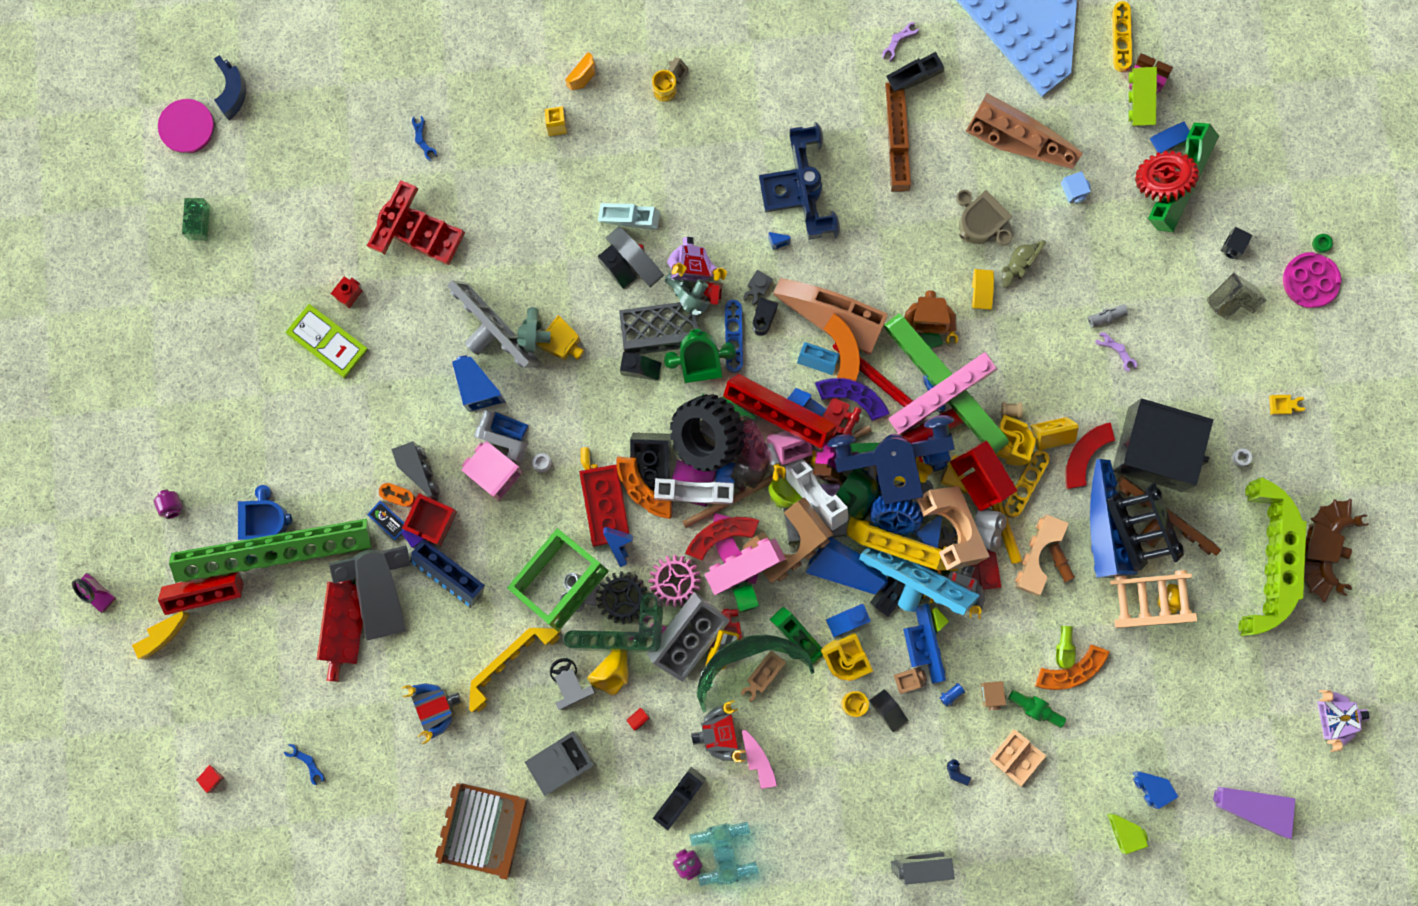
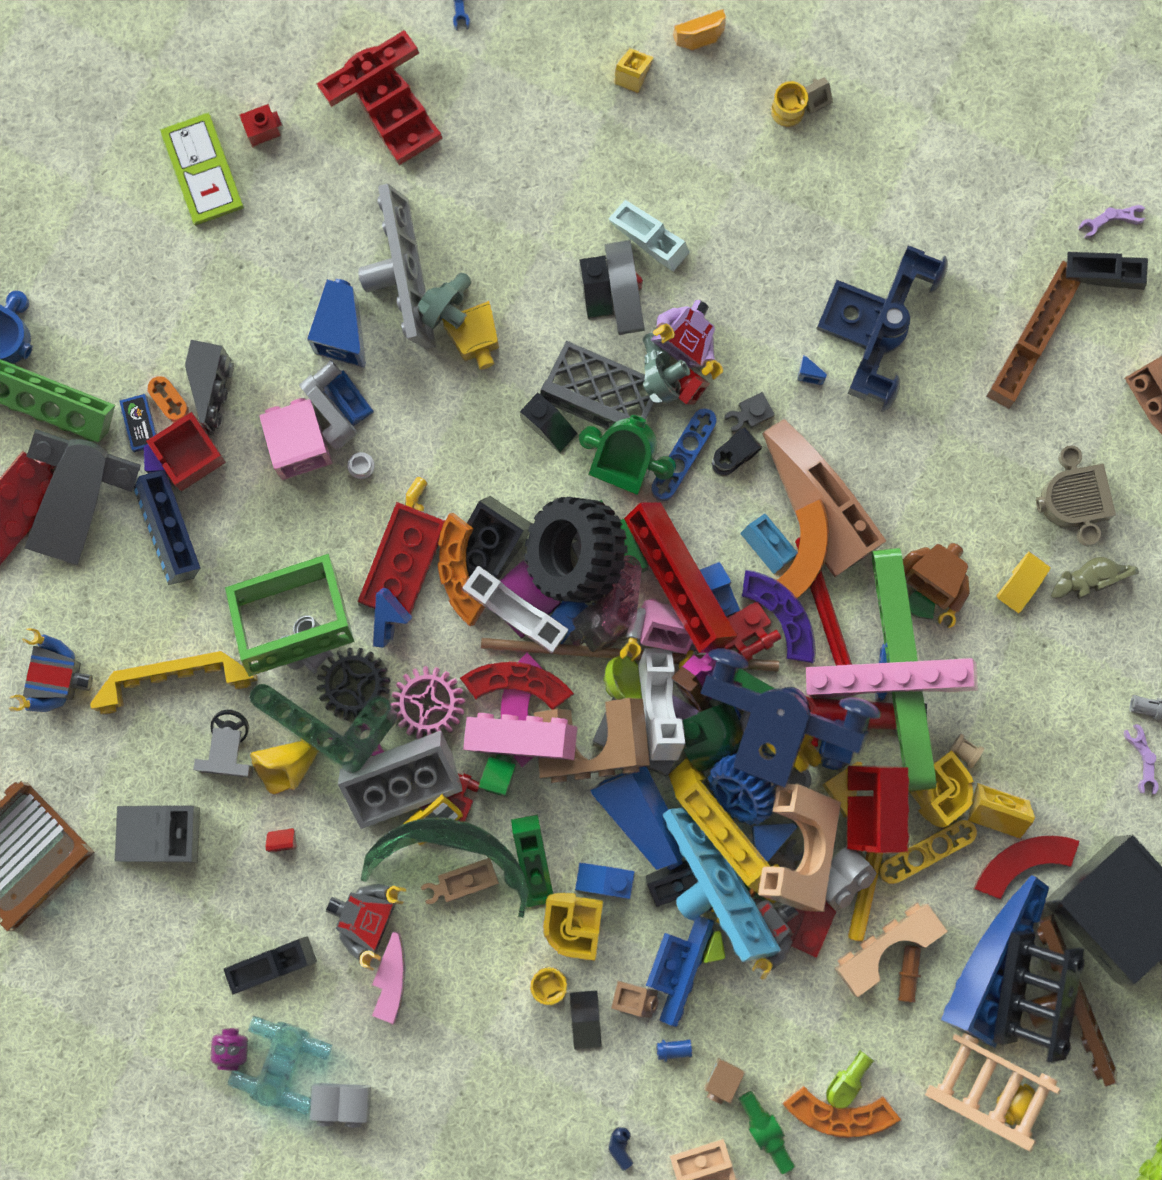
camera: 30 degrees right, 0 degrees up
(775, 853) = (340, 1103): none -> light grey brick

